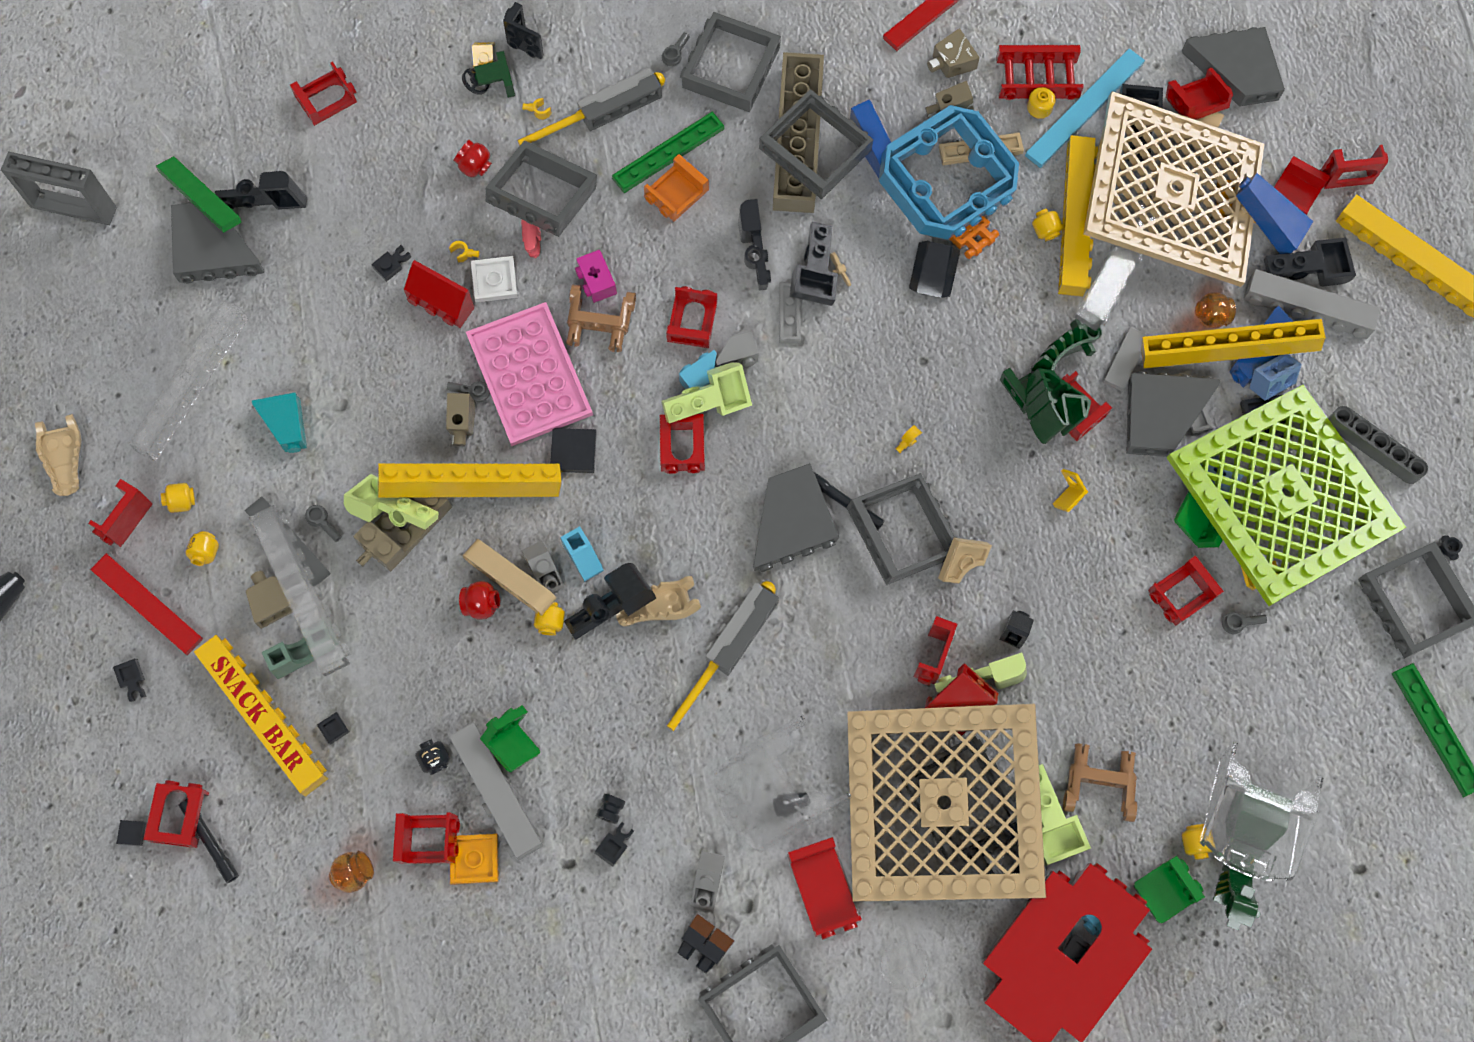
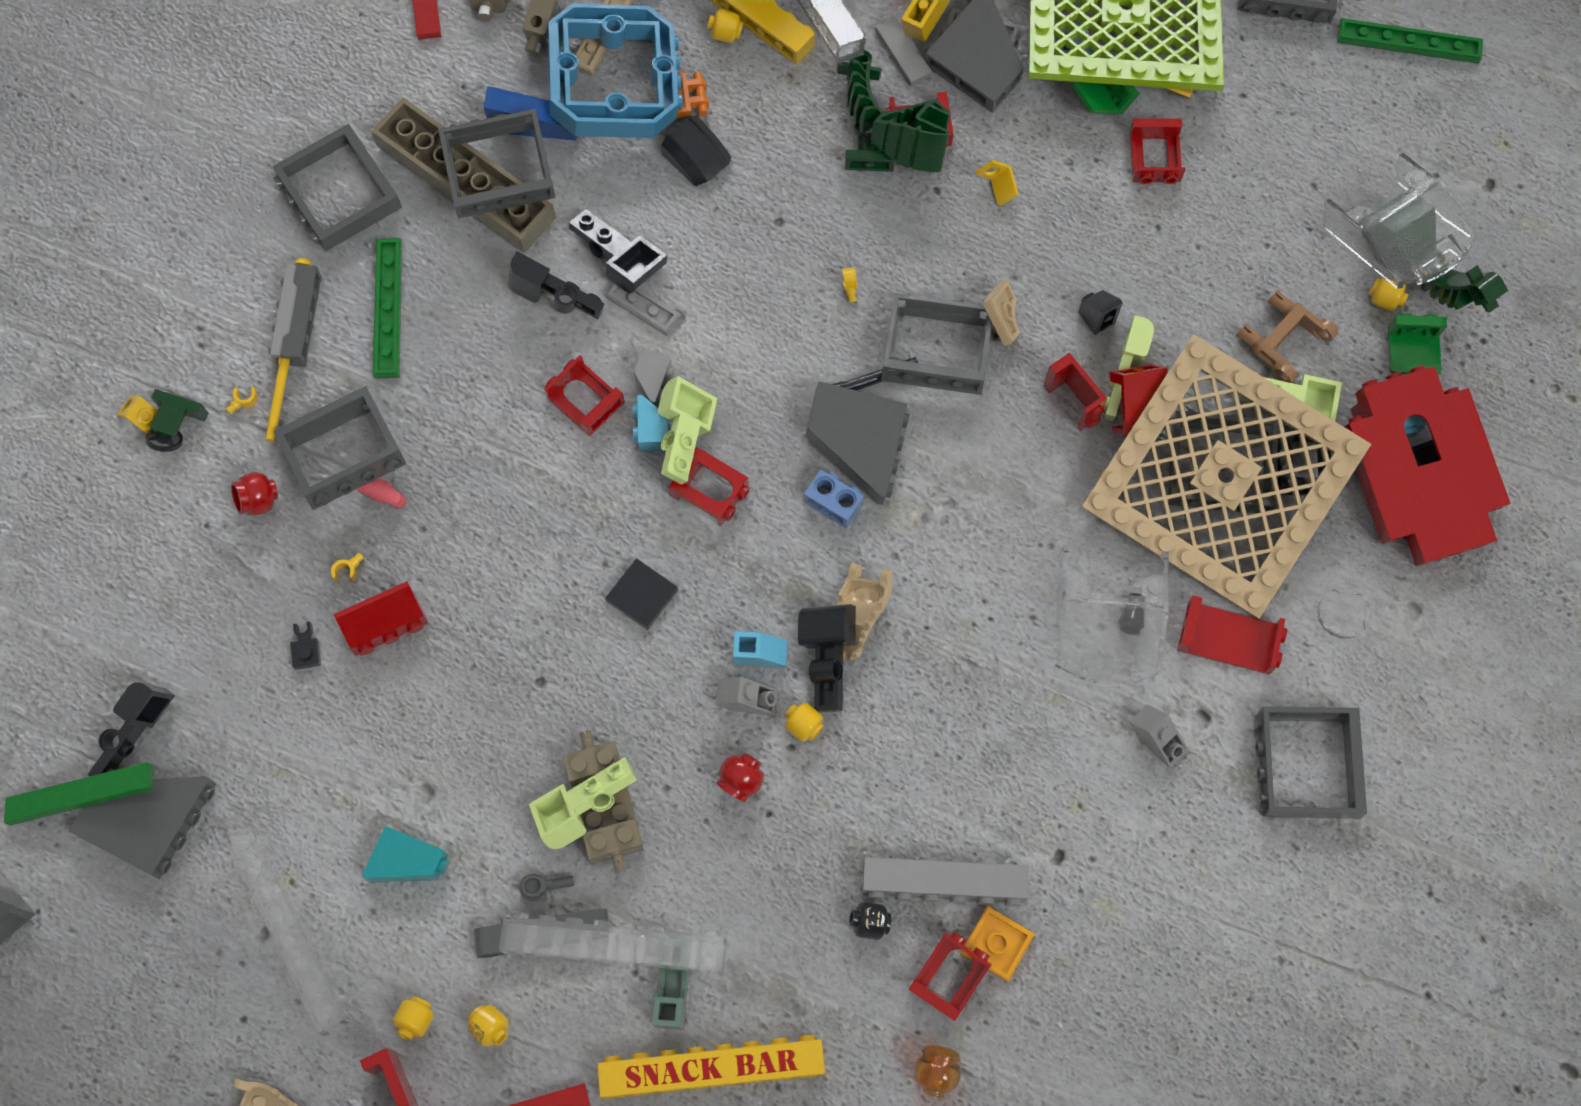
camera: 55 degrees left, 0 degrees up
(266, 600) = (592, 987): dark tan torso -> none
(333, 728) = (772, 1004): black tile -> none
(334, 77) = (45, 574): red panel -> none
(460, 408) = (525, 670): dark tan torso -> none
(468, 480) = (611, 708): yellow brick -> none
(477, 390) = (512, 646): dark grey plate -> none
(494, 279) = (400, 556): white tile -> none
(508, 740) = (906, 835): green bracket -> none
(509, 577) = (736, 732): tan beam -> none
(520, 36) = (152, 362): black bracket -> none
(529, 374) = (529, 585): bright pink plate -> none
(595, 265) = (464, 448): dark pink brick -> none
(610, 808) = (1032, 782): black wheel -> none
(612, 846) = (1070, 803): black plate -> none
(613, 324) = (508, 502): medium nougat connector -> none
(671, 55) = (284, 236): dark grey plate -> none
(677, 189) = (435, 323): orange panel -> none
(712, 951) = (1217, 771): black hips -> none
(728, 533) = (828, 503): none -> medium blue brick
(733, 640) = (941, 565): piece -> none
(839, 268) = (633, 232): tan piece -> none
(1234, 622) = (1212, 131): dark grey plate -> none

